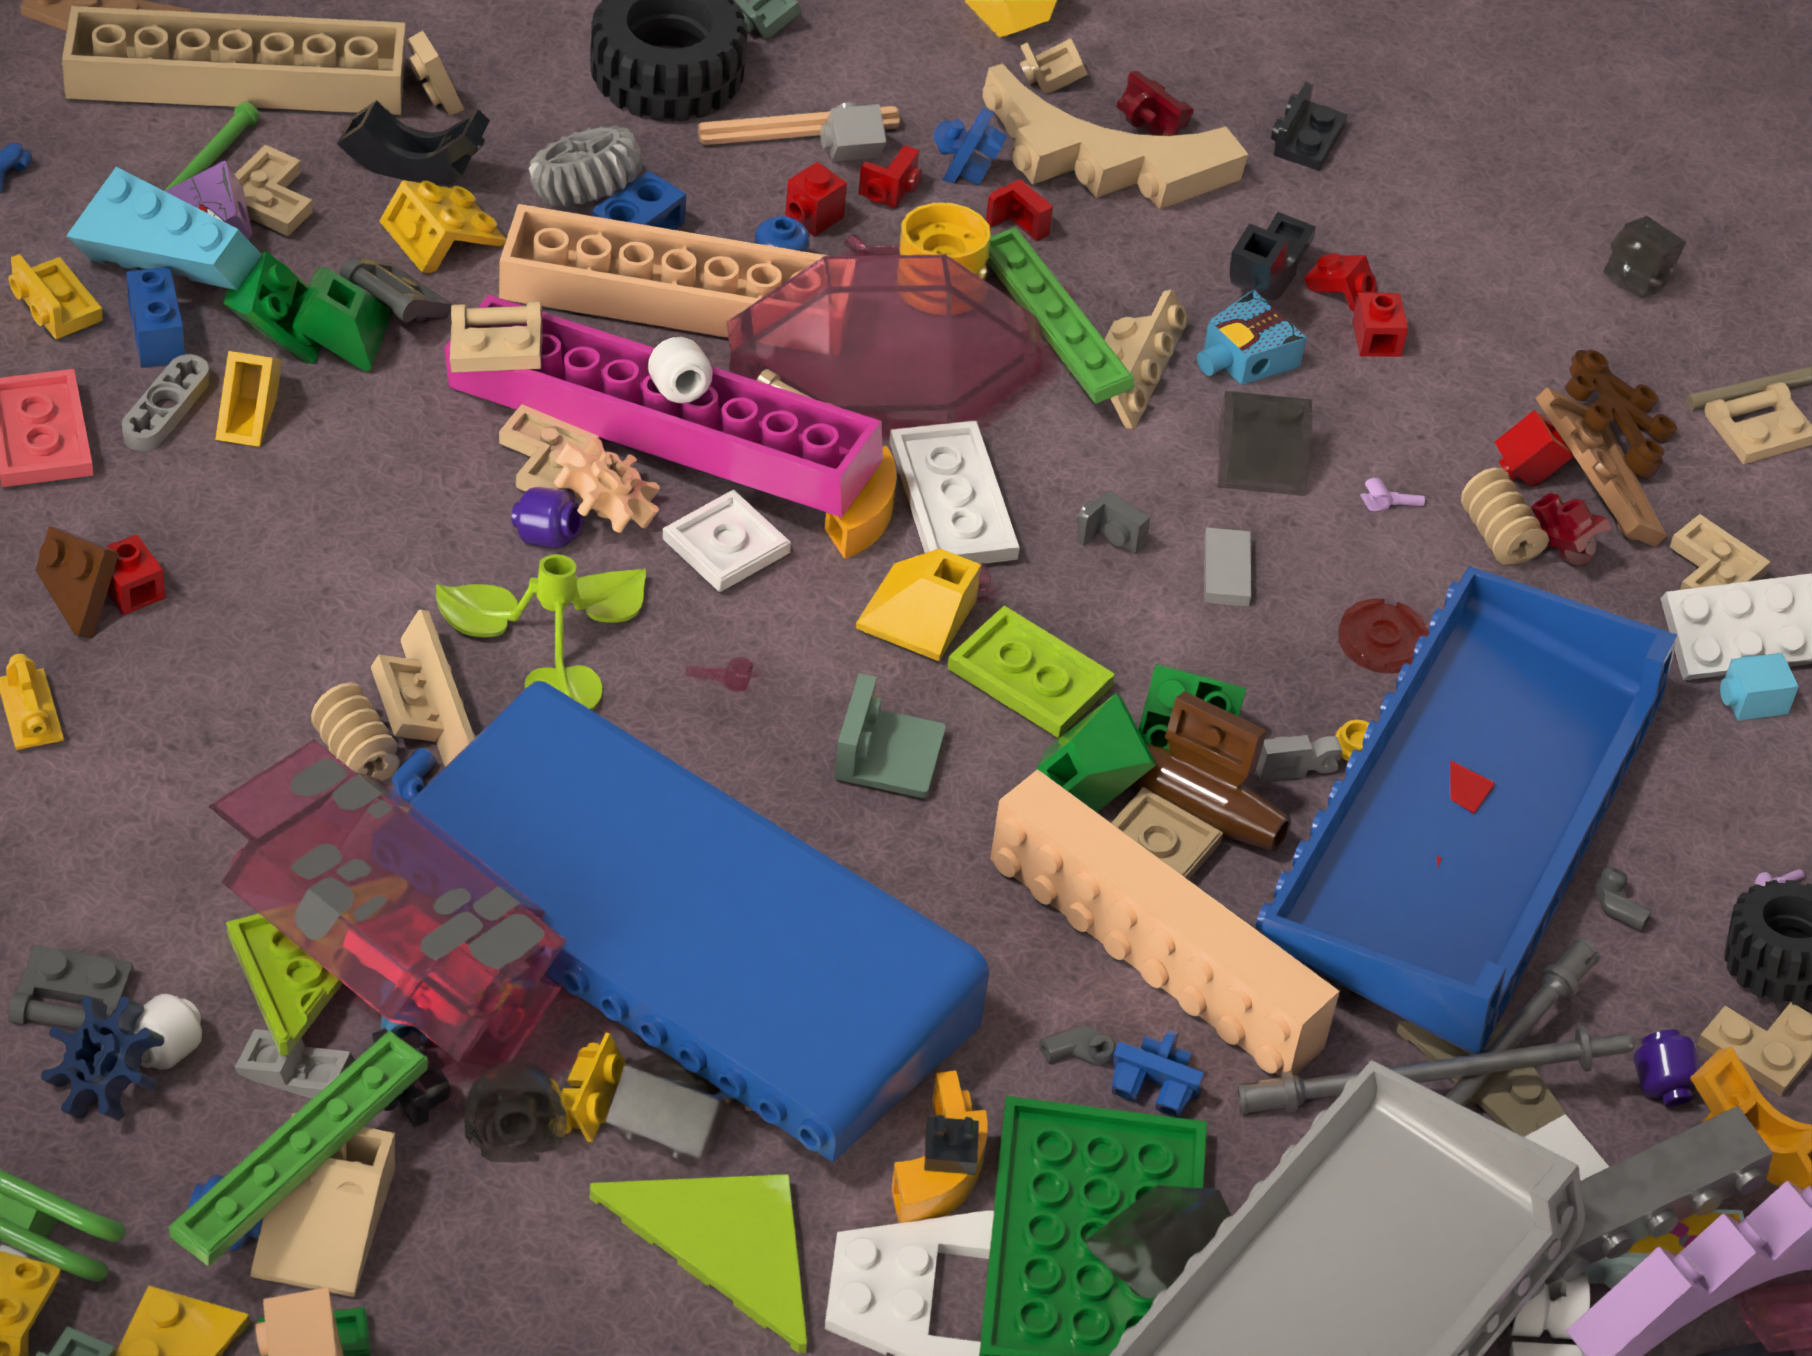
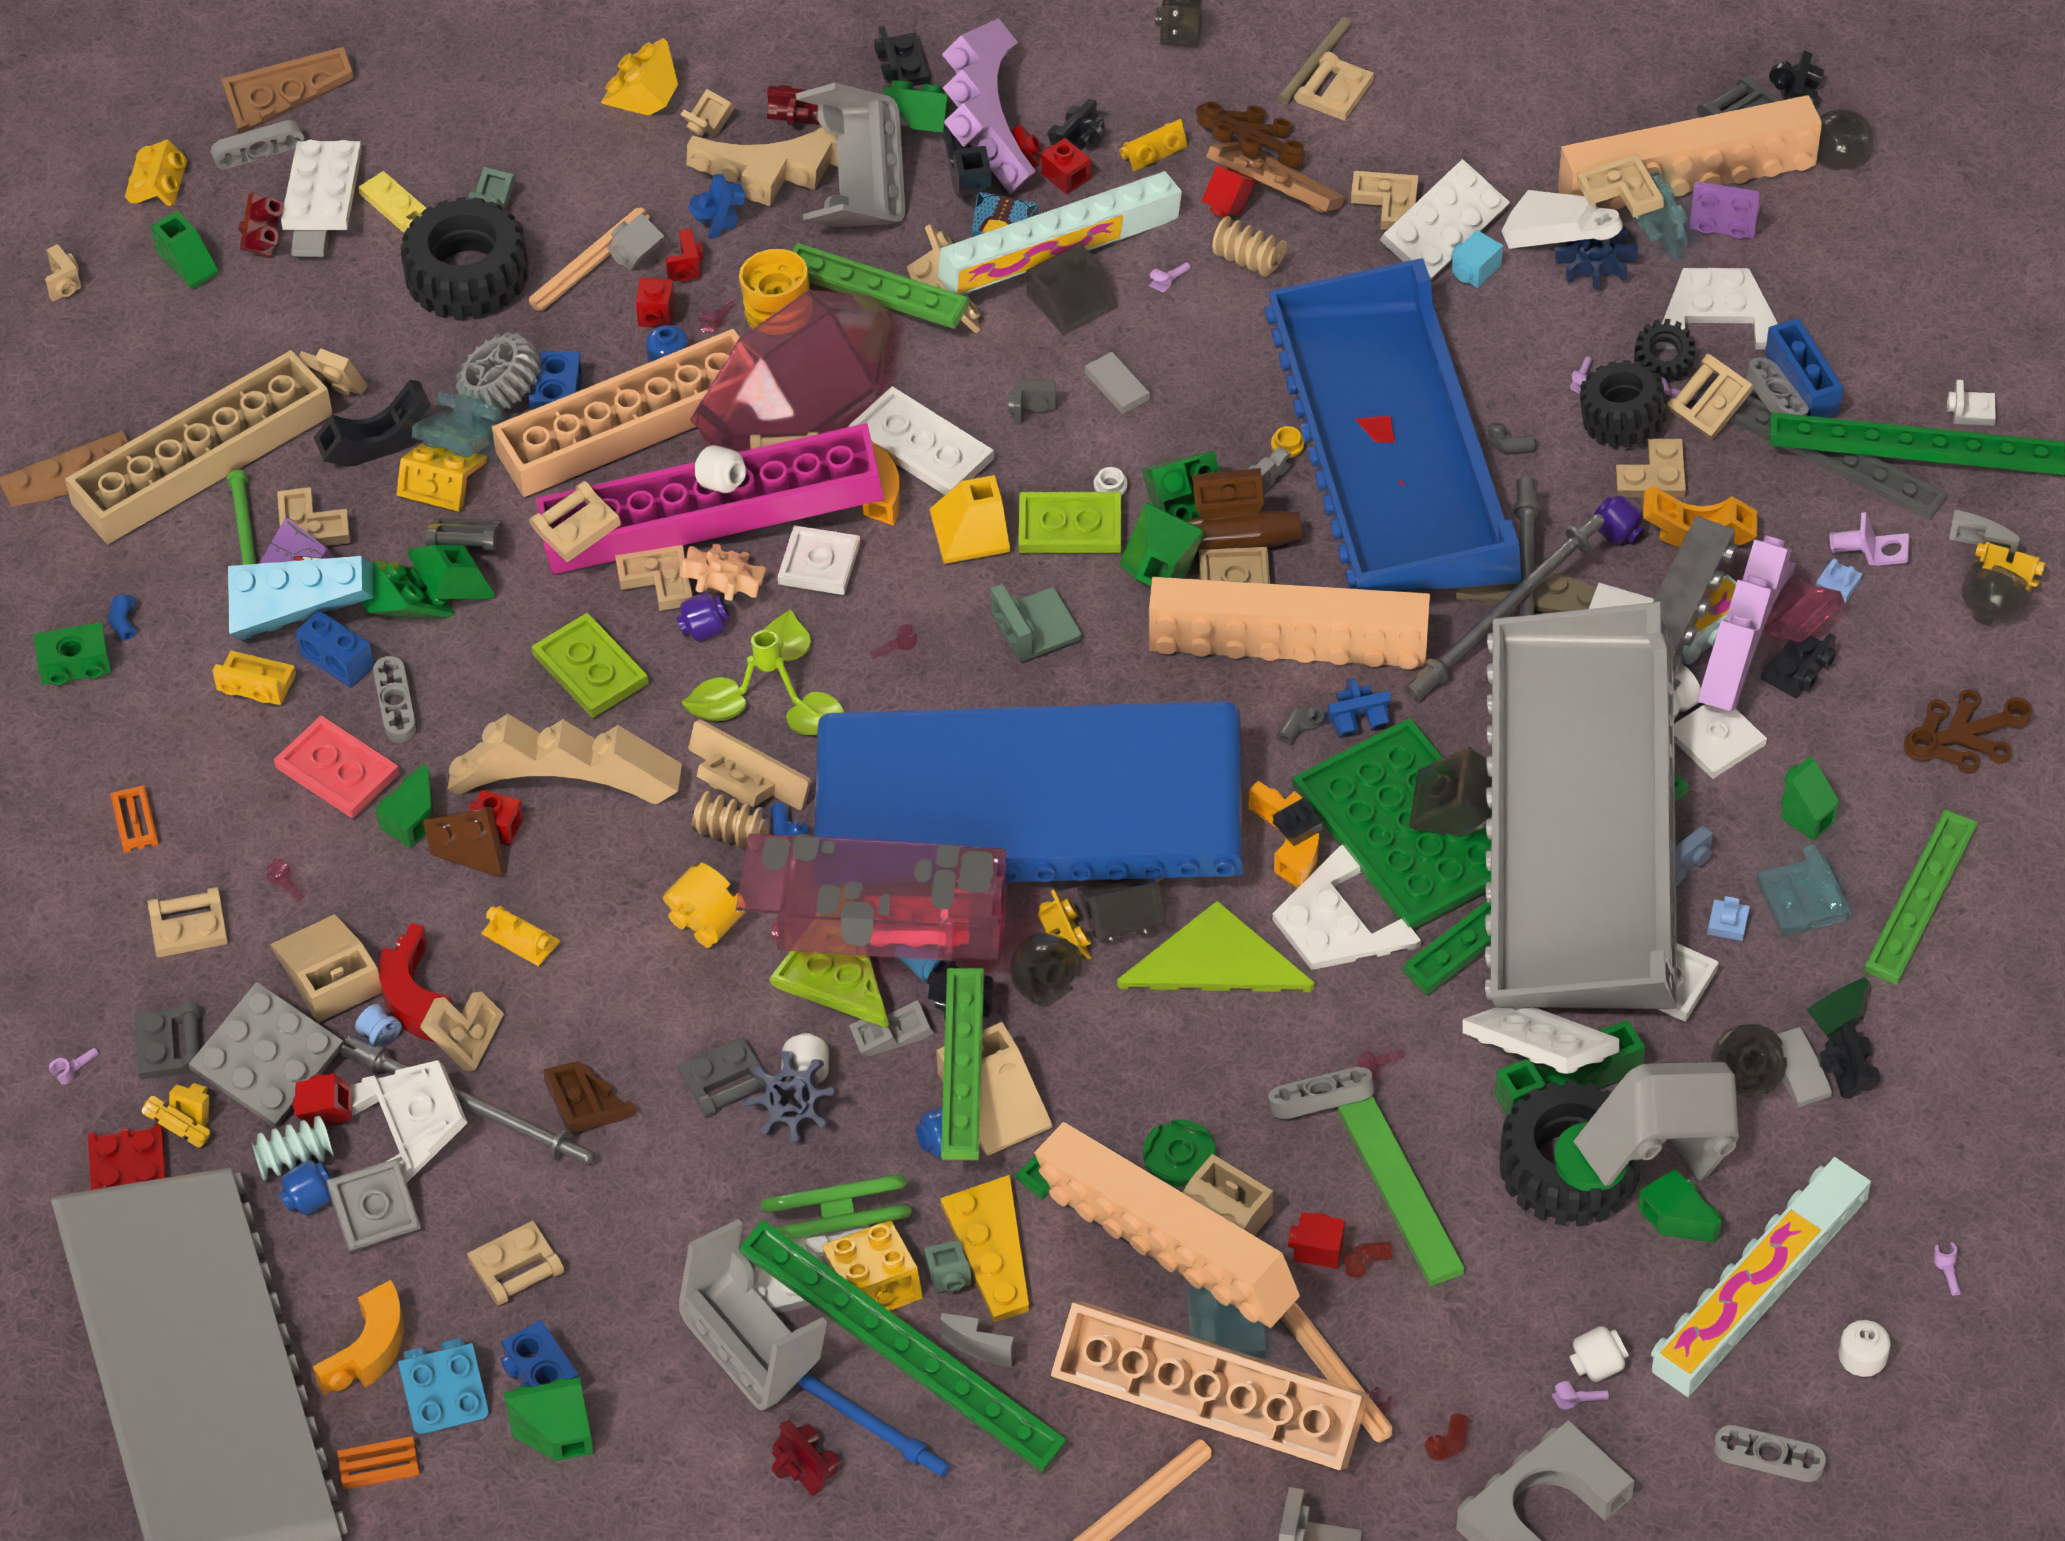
camera: 30 degrees left, 5 degrees up
(62, 503) = (407, 807): none -> green slope
(218, 774) = (702, 904): none -> yellow brick
(244, 546) = (563, 750): none -> tan arch
(248, 397) = (446, 661): yellow slope -> none
(386, 492) = (589, 665): none -> lime plate
(489, 192) = (459, 429): none -> clear light blue plate
(1023, 207) = (783, 226): red bracket -> none
(1122, 652) = (1110, 475): none -> white plate
(1169, 190) = (867, 156): none -> light grey windscreen
(1279, 177) = (920, 108): none -> green slope
(1321, 212) = (979, 112): none -> lavender arch
(1340, 385) = (1031, 241): none -> light aqua brick
(1380, 647) = (1251, 369): clear red tile -> none
(1433, 298) = (1081, 126): none -> black hips
(1500, 362) = (1155, 145): none -> yellow hinge
(1570, 527) = (1294, 227): dark red hips -> none

